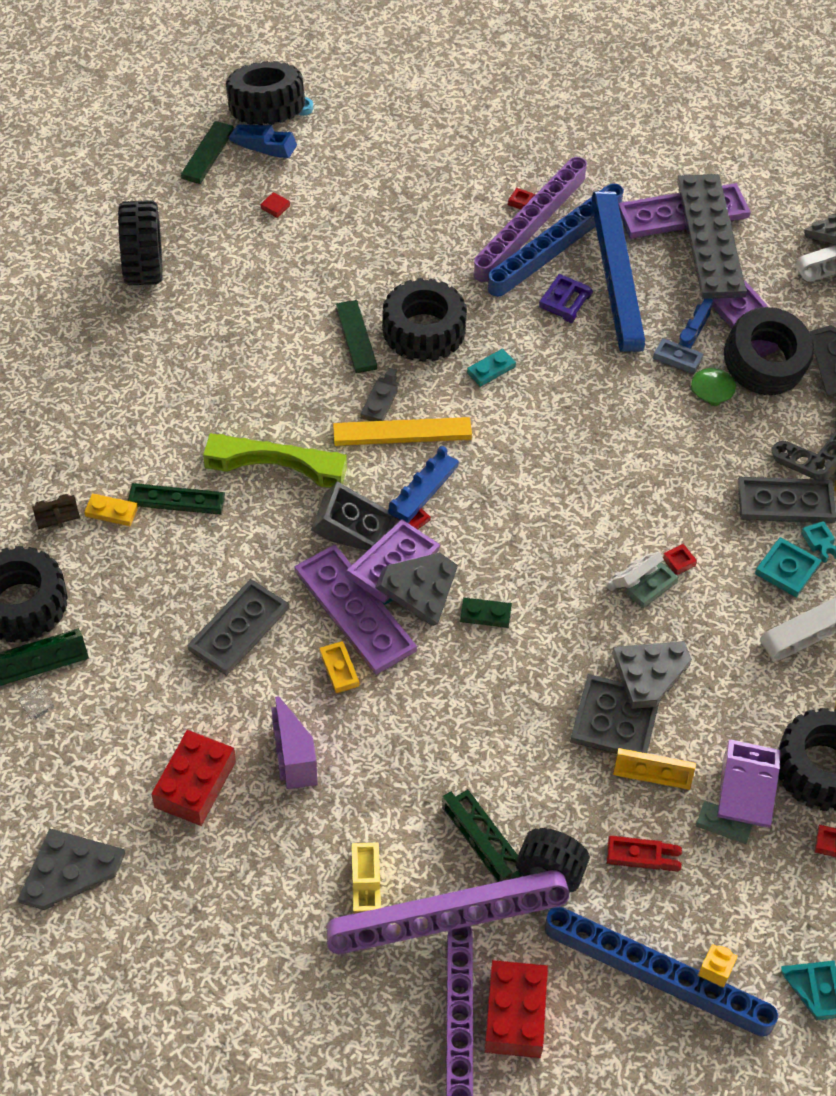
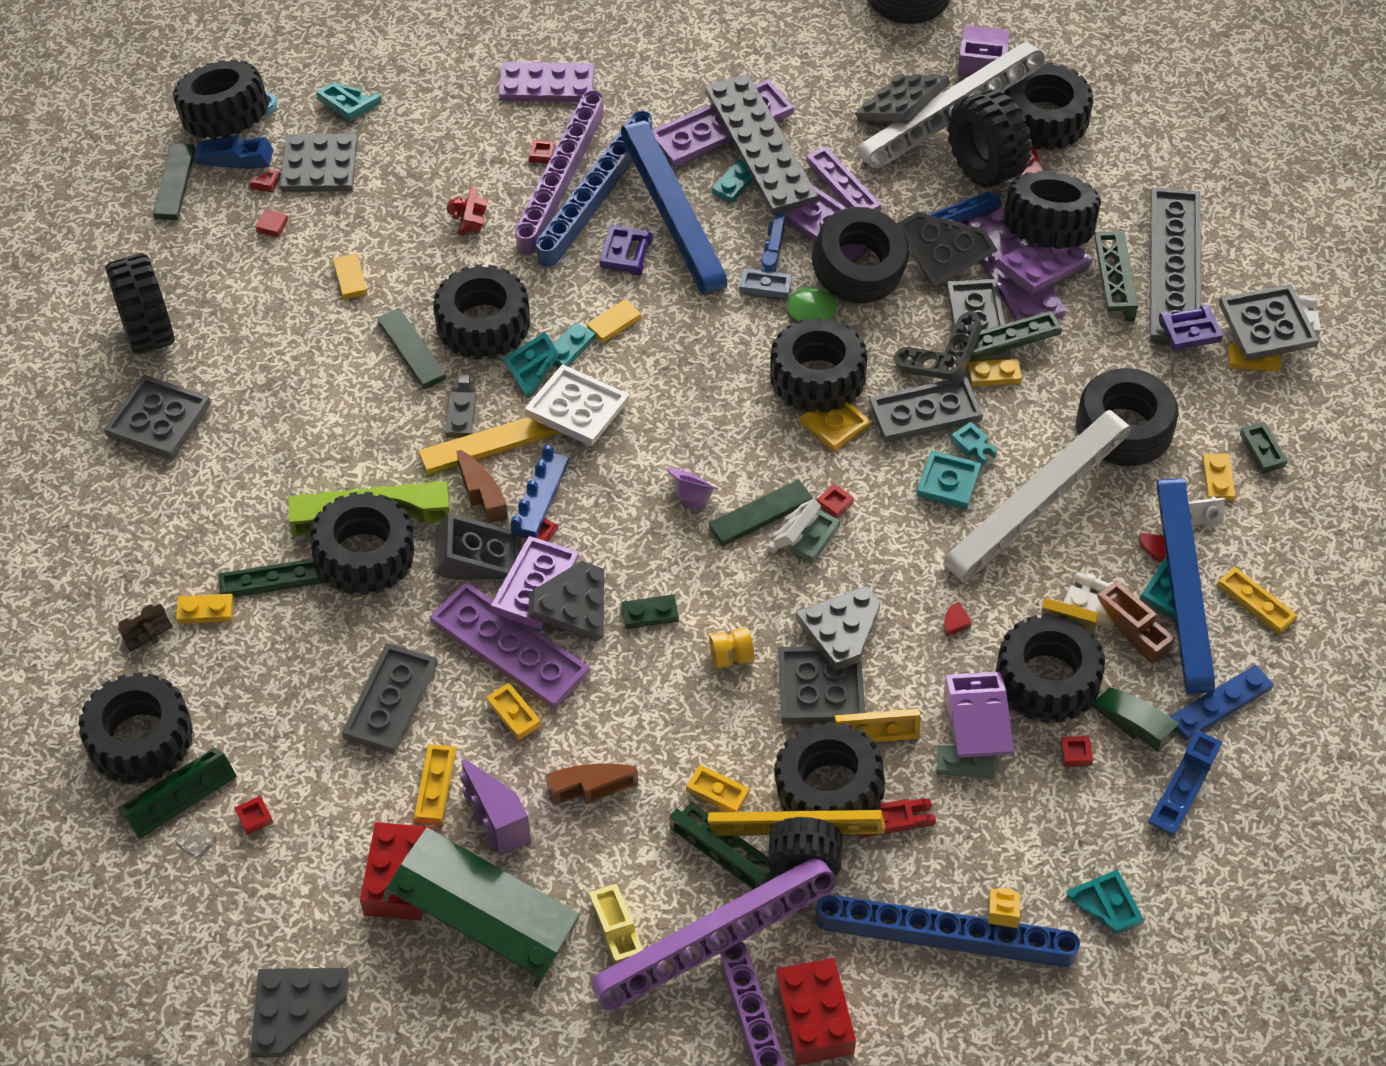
camera: 15 degrees left, 0 degrees up
(90, 695) = (253, 815): none -> red plate
(127, 340) = (157, 416): none -> dark grey plate
(252, 711) = (435, 784): none -> yellow tile
(255, 826) = (482, 902): none -> slope
(264, 465) = (364, 570): none -> black tyre
(282, 170) = (266, 182): none -> red tile
(325, 264) = (350, 276): none -> yellow tile
(331, 164) = (319, 162): none -> plate
(371, 119) = (346, 100): none -> teal wing
(375, 468) = (482, 488): none -> dark orange slope
(385, 745) = (590, 781): none -> dark orange slope
(433, 229) = (464, 209): none -> red hips
(453, 373) = (532, 362): none -> teal wing
(479, 418) = (576, 405): none -> white plate
(494, 785) = (717, 789): none -> yellow plate
(520, 825) = (761, 822): none -> yellow tile
(536, 355) = (614, 321): none -> yellow tile
(542, 141) = (545, 81): none -> plate
(555, 515) = (691, 488): none -> medium lavender piece
(555, 663) = (731, 648): none -> yellow wheel
(604, 774) = (829, 746): none -> black tyre
(609, 552) = (759, 512): none -> dark green tile
(677, 263) = (733, 182): none -> teal plate
(696, 457) = (818, 388): none -> black tyre
(702, 490) = (837, 426): none -> yellow tile
(756, 693) = (956, 620): none -> red tile
(773, 283) = (841, 180): none -> medium lavender plate

